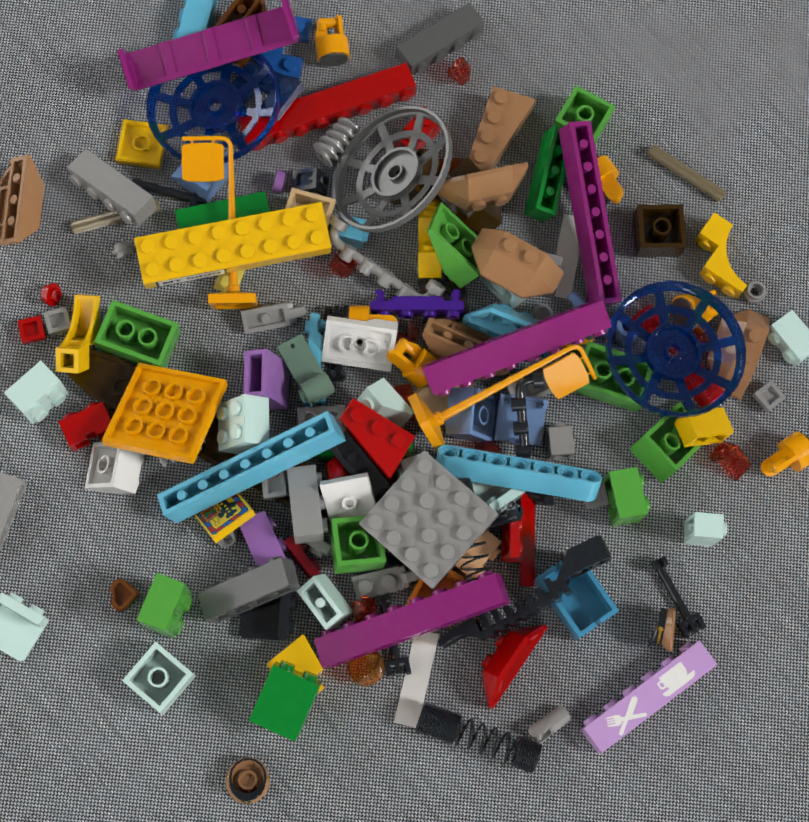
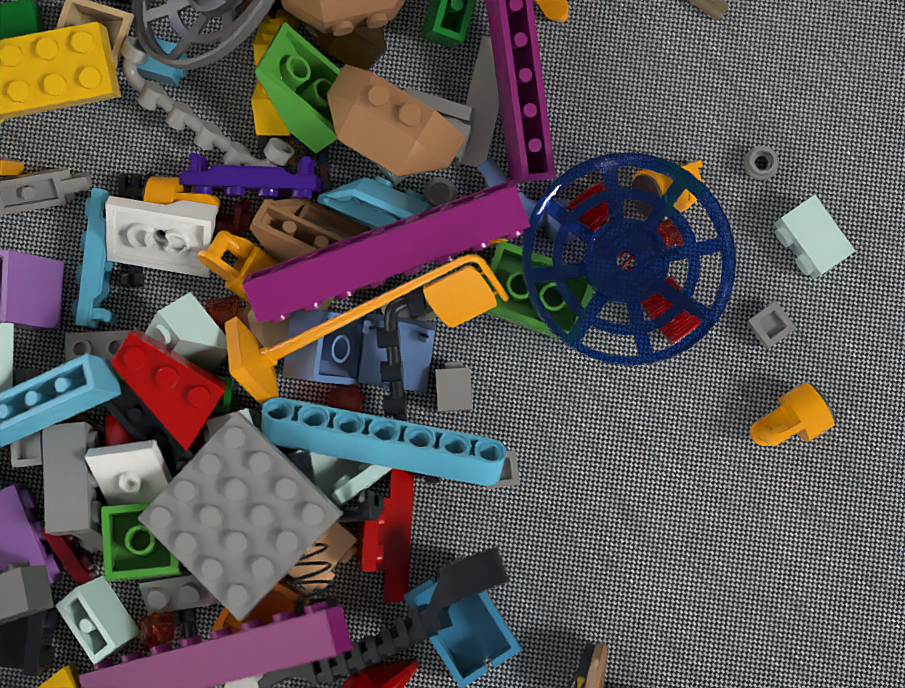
camera: 15 degrees right, 10 degrees up
(307, 373) = (80, 277): sand green door -> none
(341, 267) = (142, 118): clear red bracket -> none
(626, 496) = (544, 478): bright green brick -> none
(659, 230) = (622, 66): dark brown brick -> none
(662, 447) = (616, 397): bright green slope -> none
(688, 620) = (590, 576): black hinge -> none
(704, 529) = (658, 529): light aqua brick -> none
(705, 428) = (669, 378): yellow brick -> none
(718, 269) = (706, 127): yellow arch -> none
(731, 459) = (706, 420): clear red bracket -> none
(755, 331) = (753, 224): medium nougat wedge -> none

